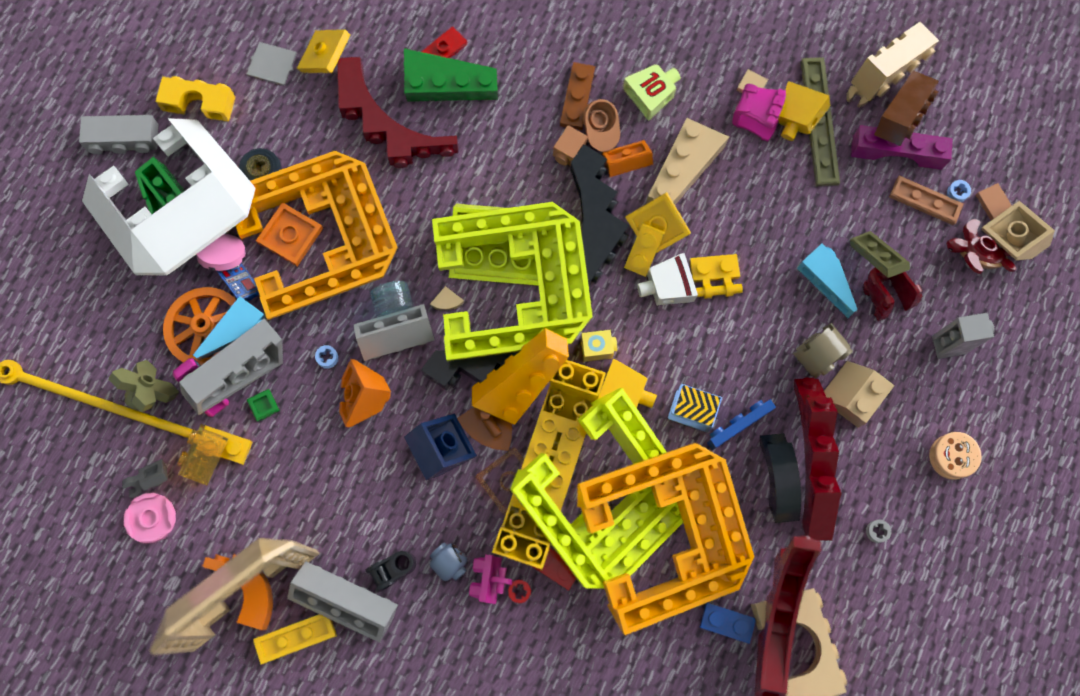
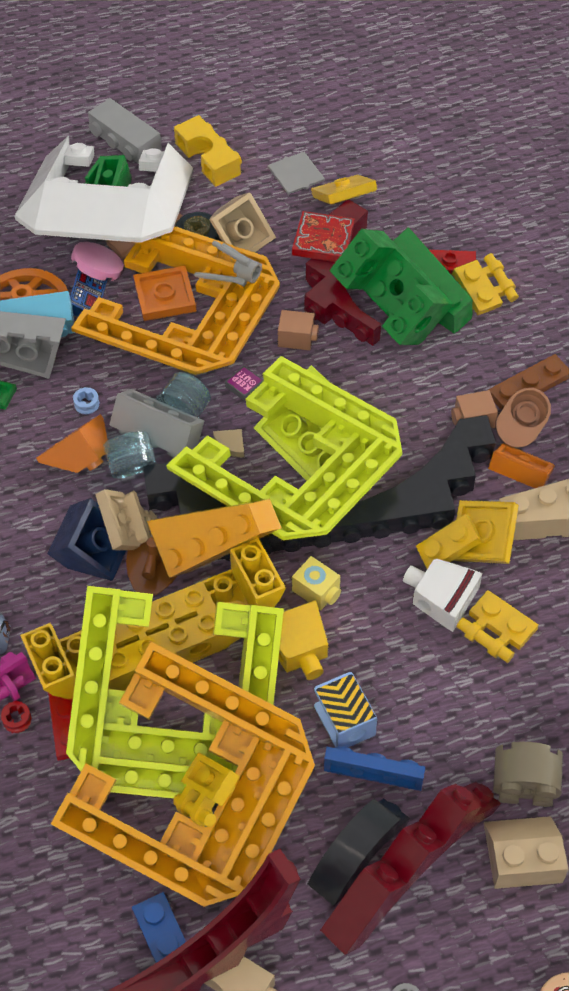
camera: 50 degrees right, 20 degrees down
(285, 138) = (242, 224): none -> tan slope
(336, 173) = (244, 267): none -> light grey plant
(355, 103) = (322, 236): none -> red tile
(404, 370) = (129, 453): none -> clear light blue piece
(405, 185) = (297, 330): none -> nougat brick
(410, 252) = (243, 382): none -> tile
(416, 99) = (375, 265): none -> green plate
(448, 413) = (124, 519): none -> tan slope
(480, 52) = (477, 284): none -> yellow plate
(679, 522) = (206, 785): none -> yellow plate

